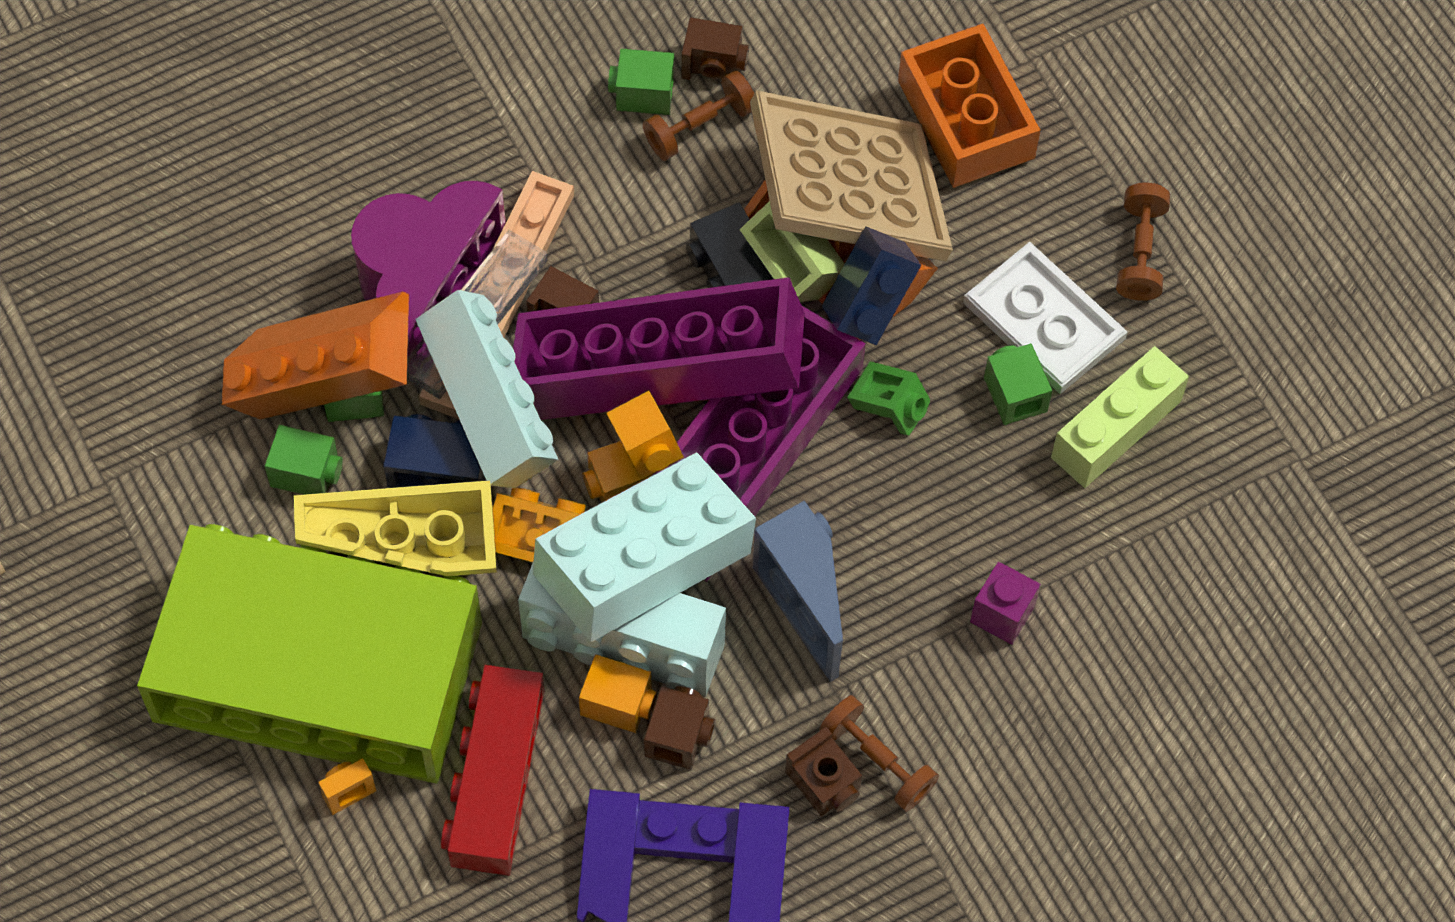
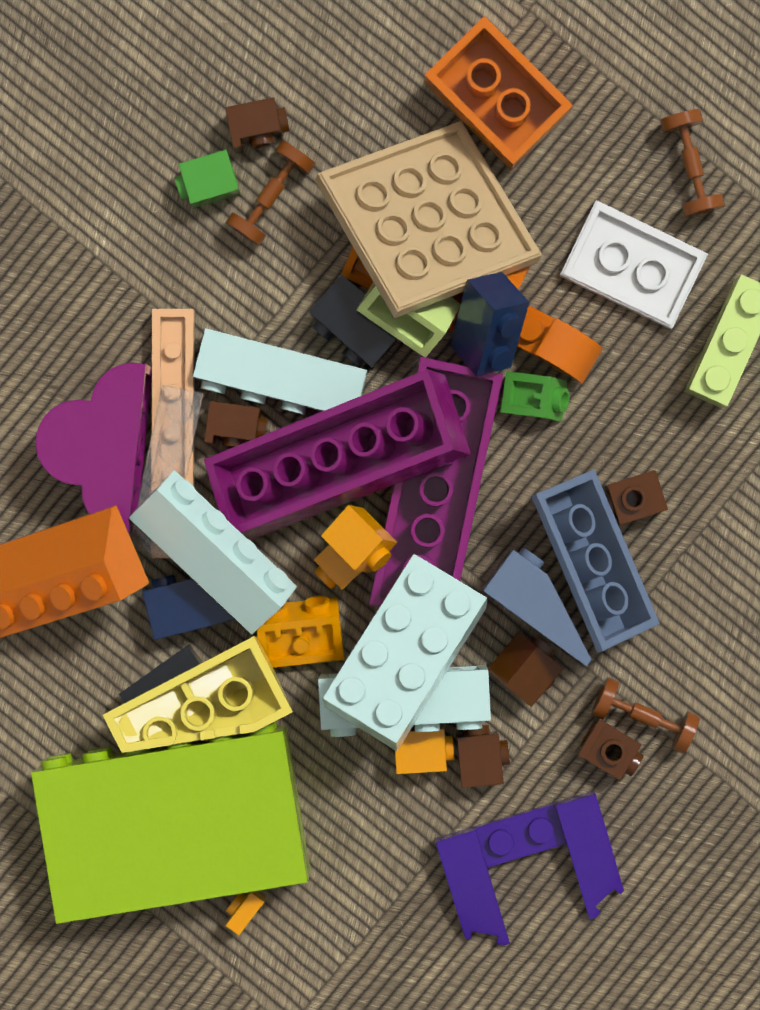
camera: 25 degrees left, 25 degrees up
(303, 461) = (85, 653): bright green brick -> none
(495, 770) = (354, 851): red brick -> none
(611, 258) = (275, 373): none -> light aqua brick
(768, 651) = (526, 667): none -> reddish brown brick
(888, 564) = (595, 560): none -> sand blue slope
(934, 353) = (558, 345): none -> orange brick
(955, 530) = (636, 497): none -> reddish brown brick
(1005, 603) = (698, 548): magenta brick -> none
(1017, 383) = (634, 341): bright green brick -> none

